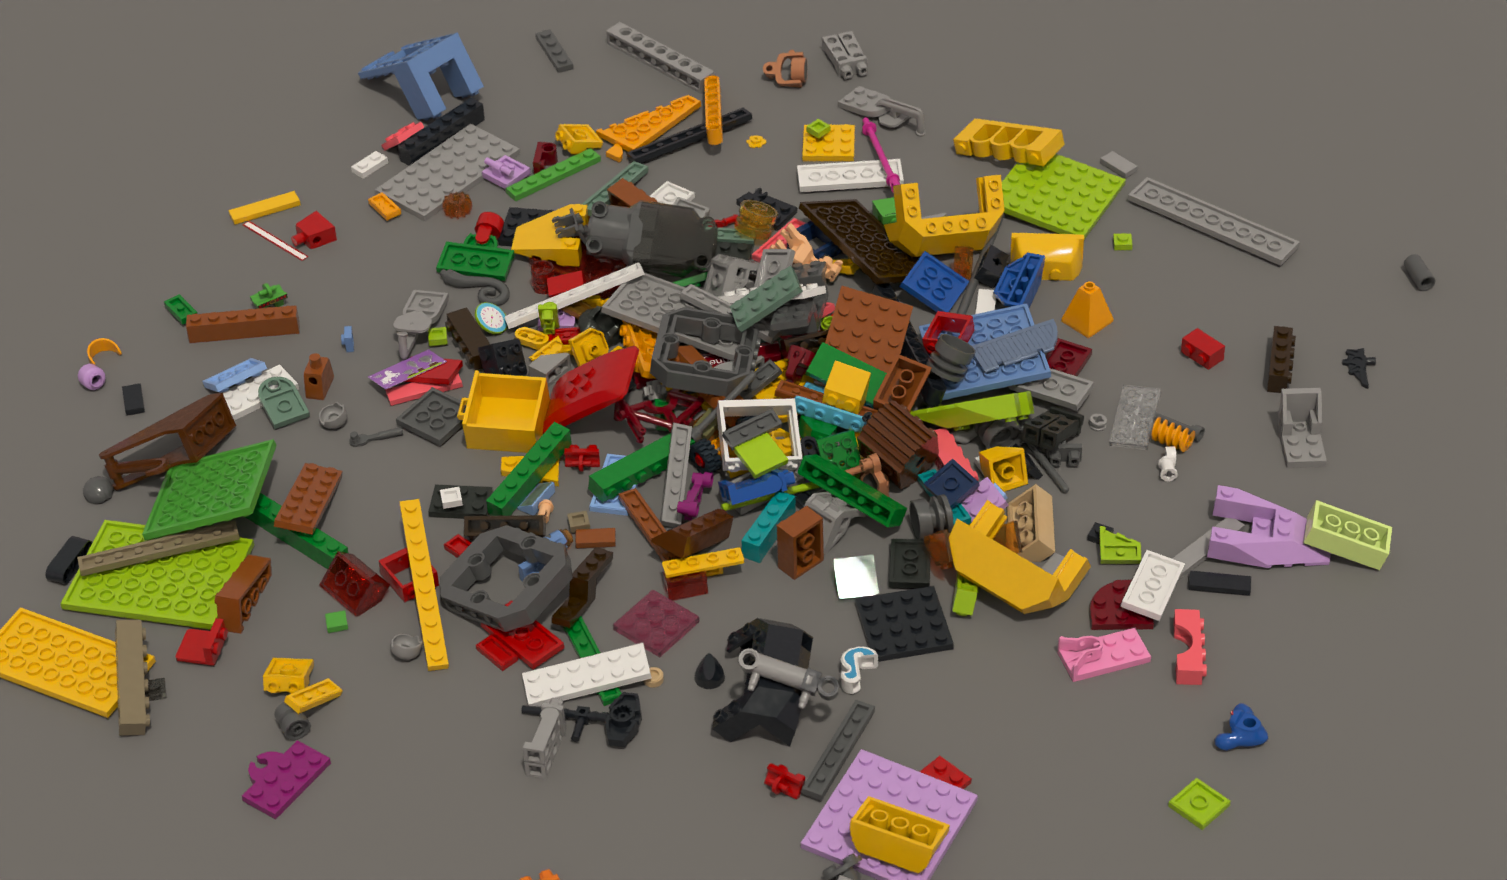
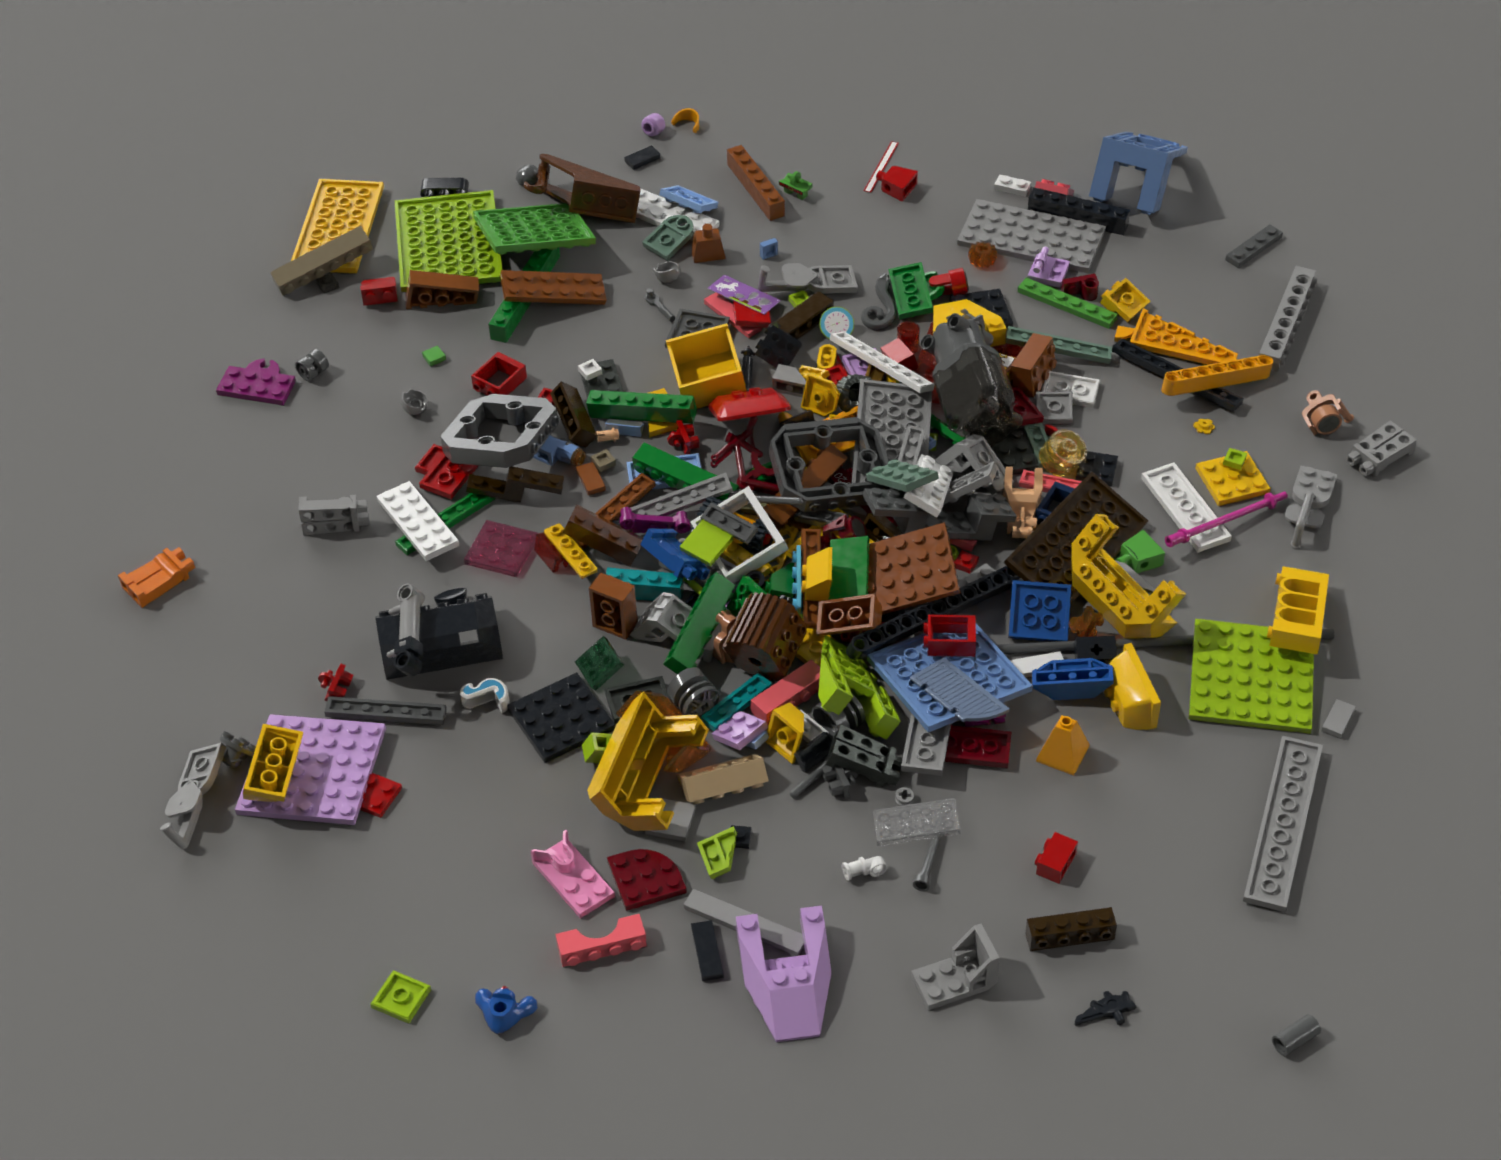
camera: 70 degrees right, 5 degrees up
(158, 548) = (464, 225): dark tan plate -> none
(179, 308) = (760, 143): green plate -> none
(264, 207) = (918, 144): yellow tile -> none
(287, 675) = (360, 346): yellow plate -> none
(313, 695) = (337, 366): yellow tile -> none
(353, 583) = (477, 349): clear red slope -> none
(384, 206) = (957, 212): light orange plate -> none
(423, 585) = (478, 385): yellow plate -> none
(549, 317) = (843, 353): lime hips -> none
(620, 723) = (374, 557): black bar -> none
(657, 678) = (436, 565): tan tile -> none
(757, 196) = (1108, 446): black plate -> none
(951, 357) = (898, 639): dark grey wheel -> none
(953, 482) = (741, 695): dark blue plate -> none
(1122, 241) = (1206, 752): lime plate -> none
(1153, 585) = (667, 888): white plate -> none
(1171, 436) = (904, 859): light orange piece -> none
(1348, 535) = (800, 1039): yellowish green brick -> none

